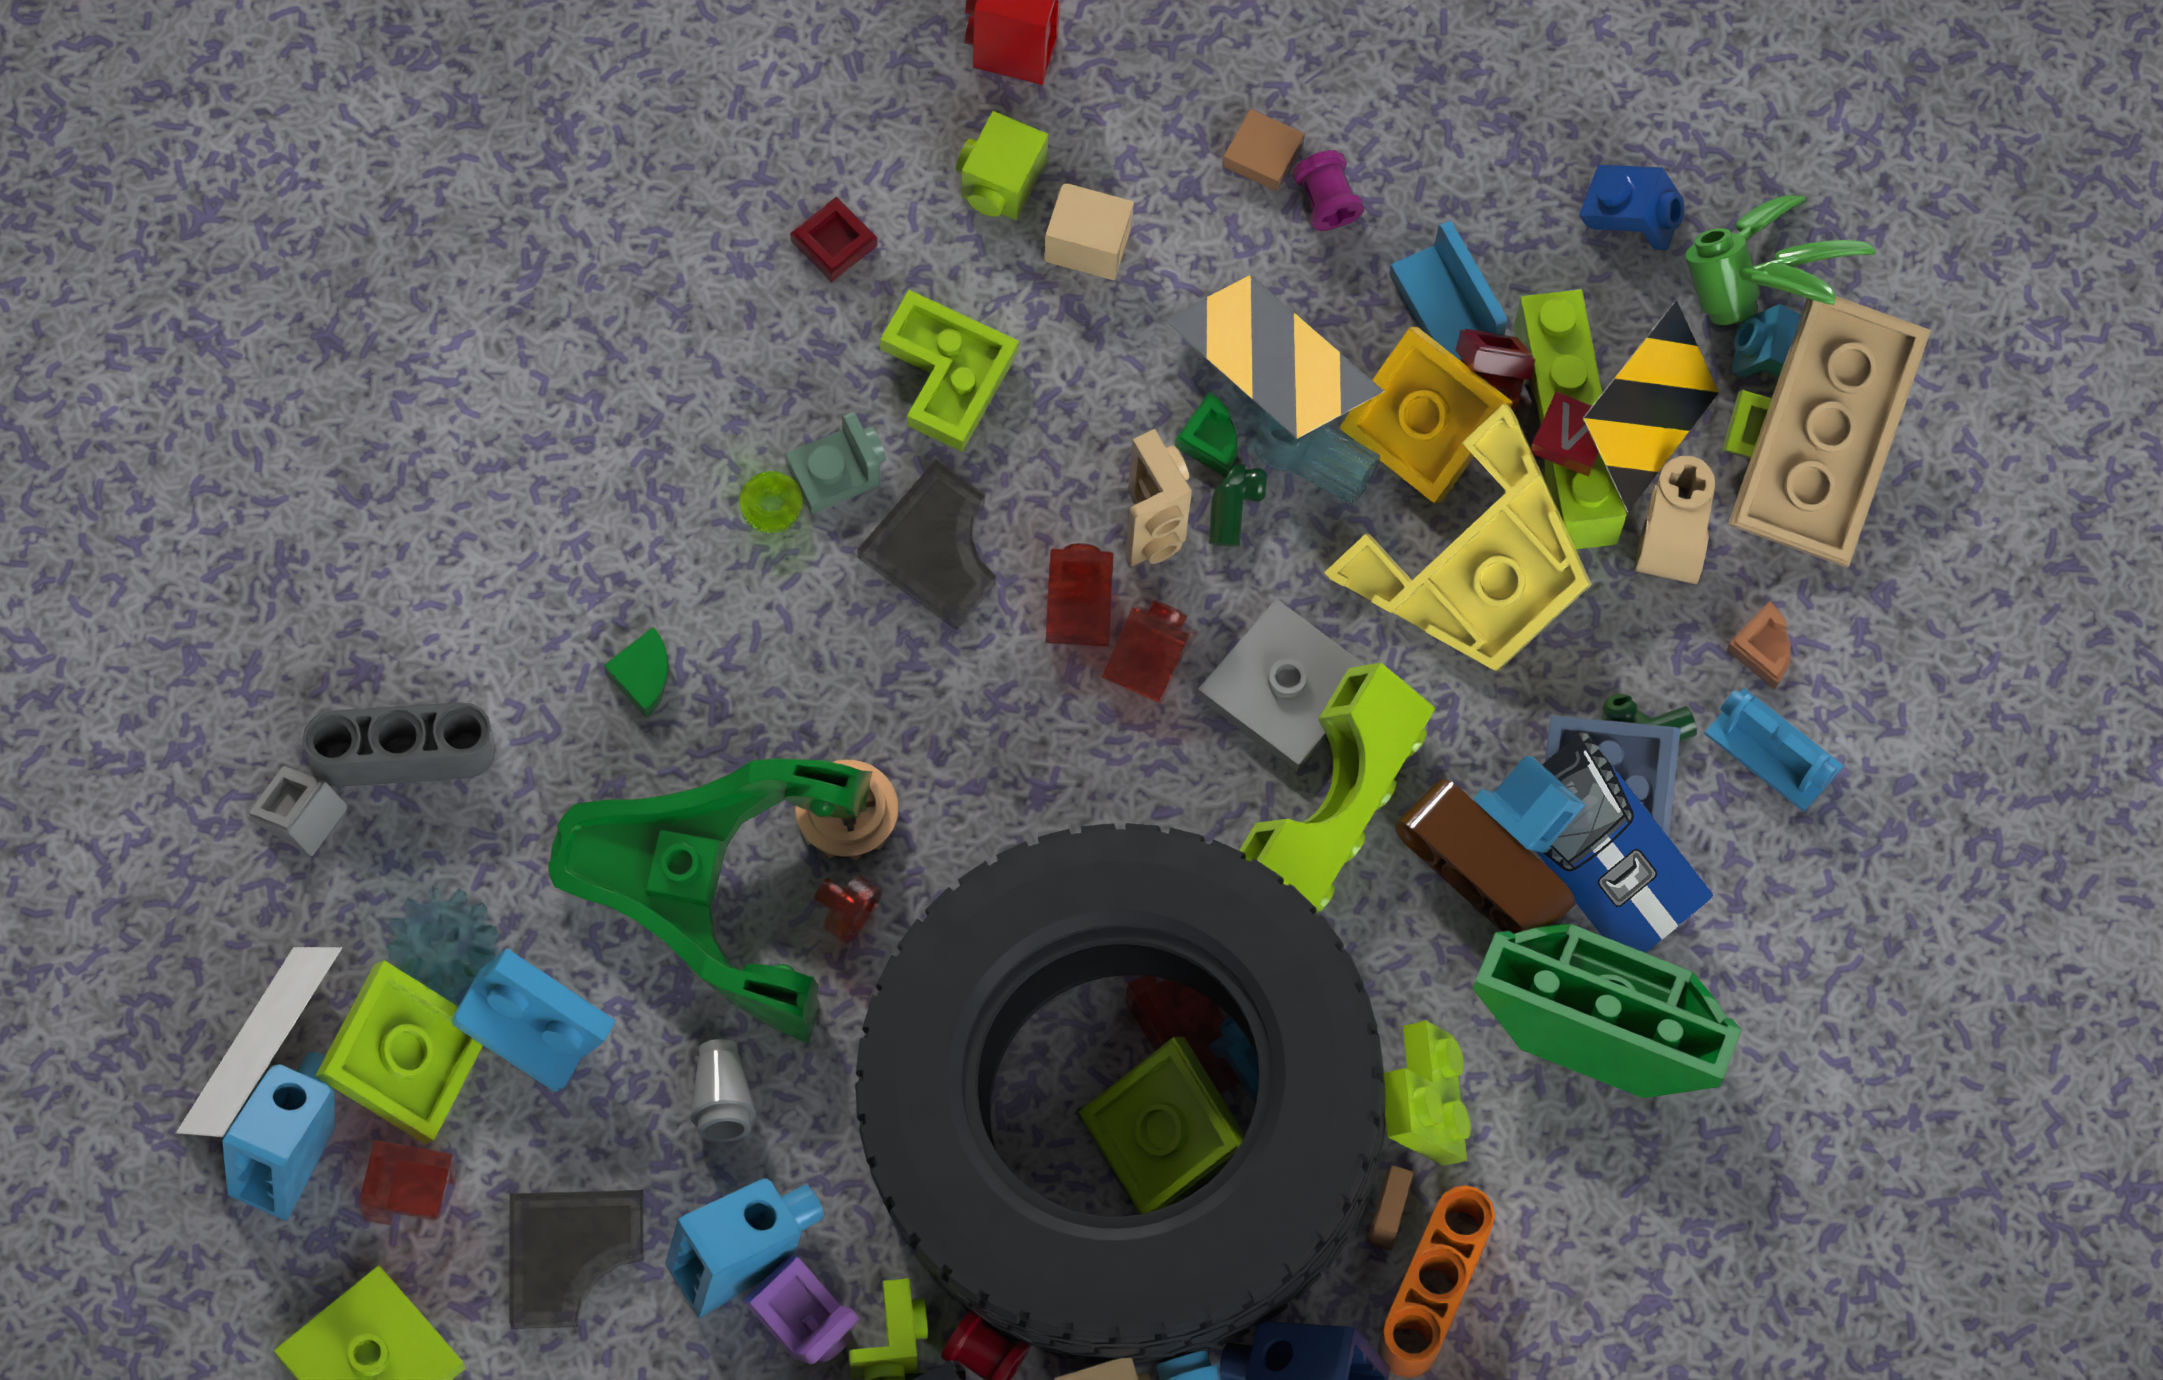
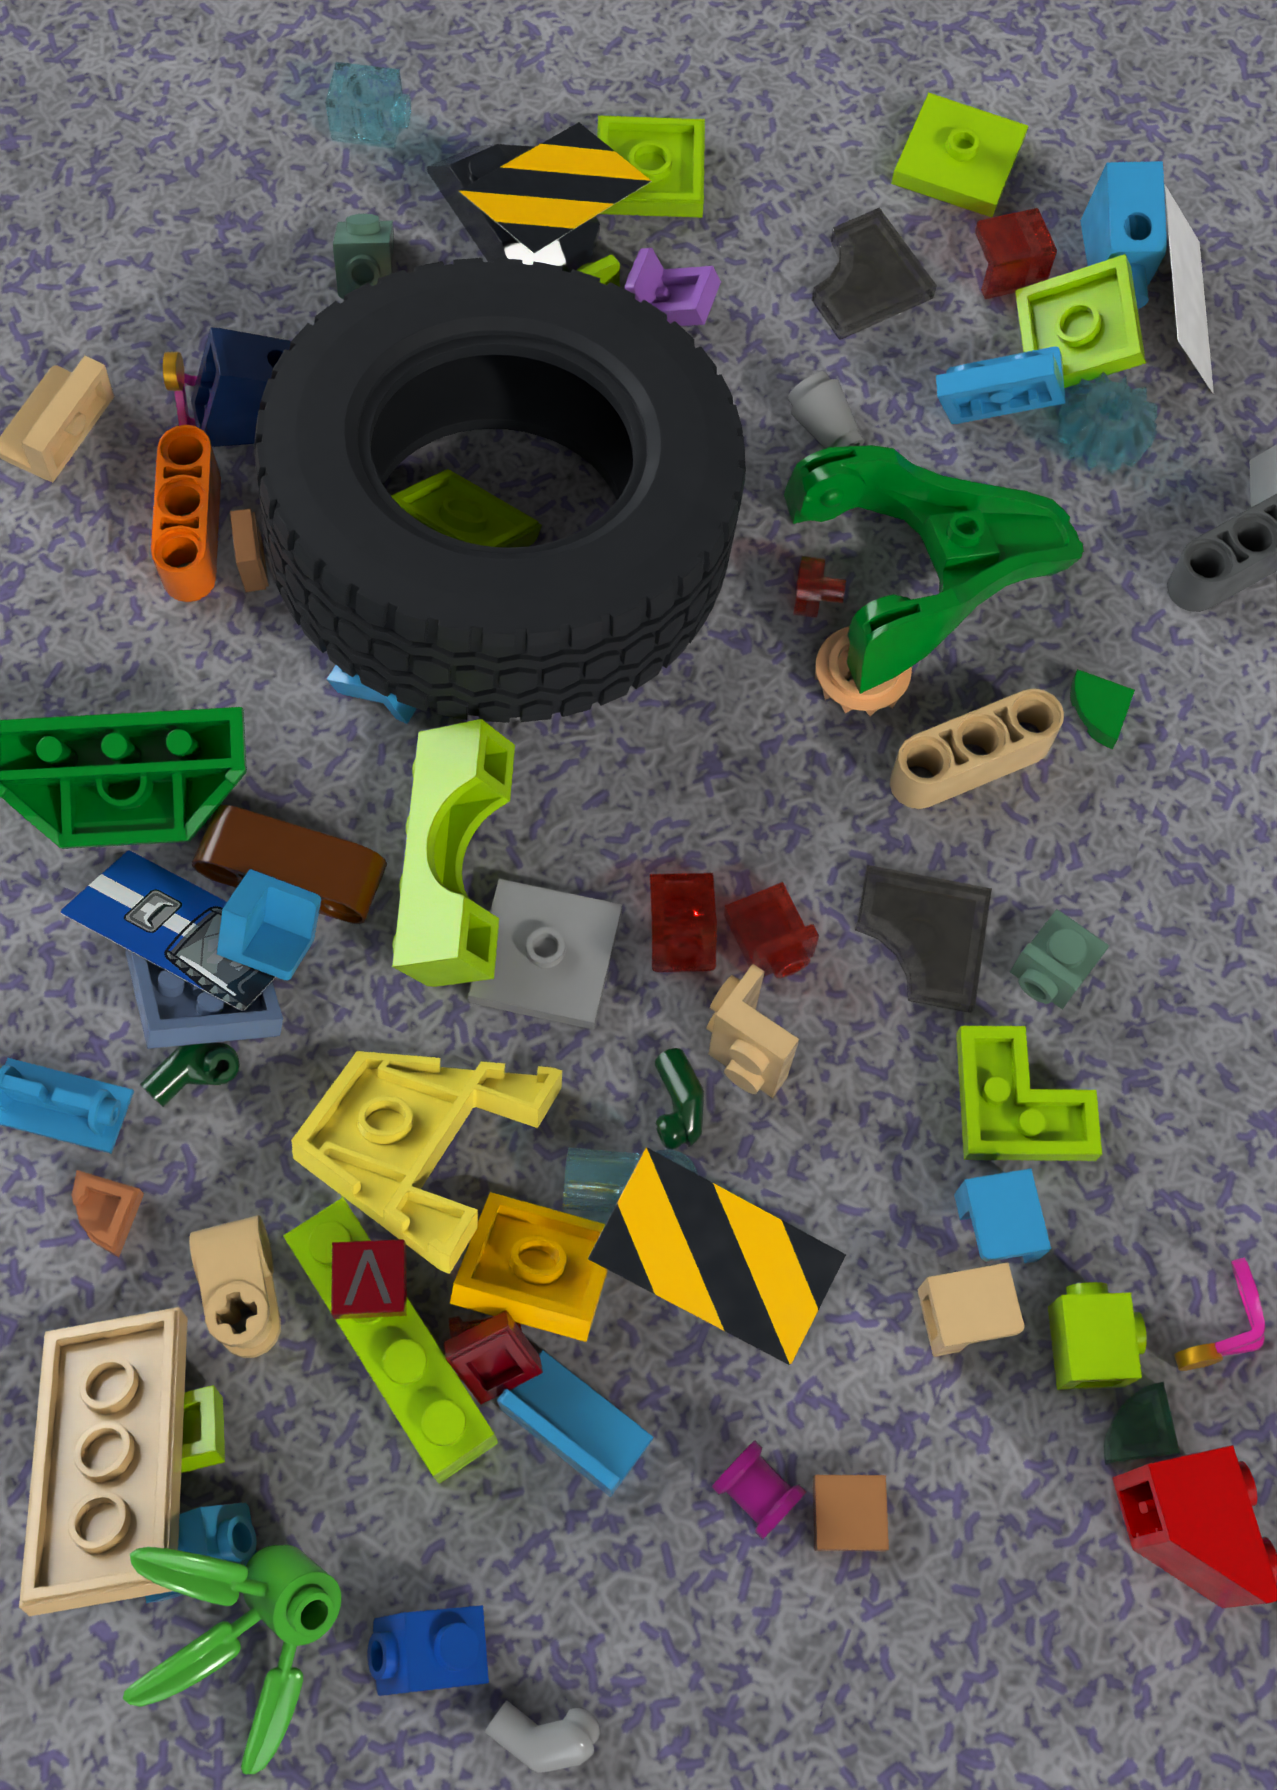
camera: 155 degrees right, 0 degrees up
(738, 1241) = (748, 297): dark azure torso -> none
(766, 485) = (1100, 885): clear neon green plate -> none
(768, 655) = (991, 728): none -> tan beam
(834, 239) = (1203, 1189): dark red tile -> none
(916, 120) = (1250, 1341): none -> dark pink piece
(1004, 95) = (1141, 1428): none -> clear green tile
(1021, 282) = (1004, 1215): none -> dark azure panel
(1210, 436) = (737, 1162): green tile -> none
(1425, 1098) = (242, 633): lime plate -> none
(1575, 108) = (548, 1745): none -> light grey arm
(1651, 405) = (304, 1374): sticker -> none

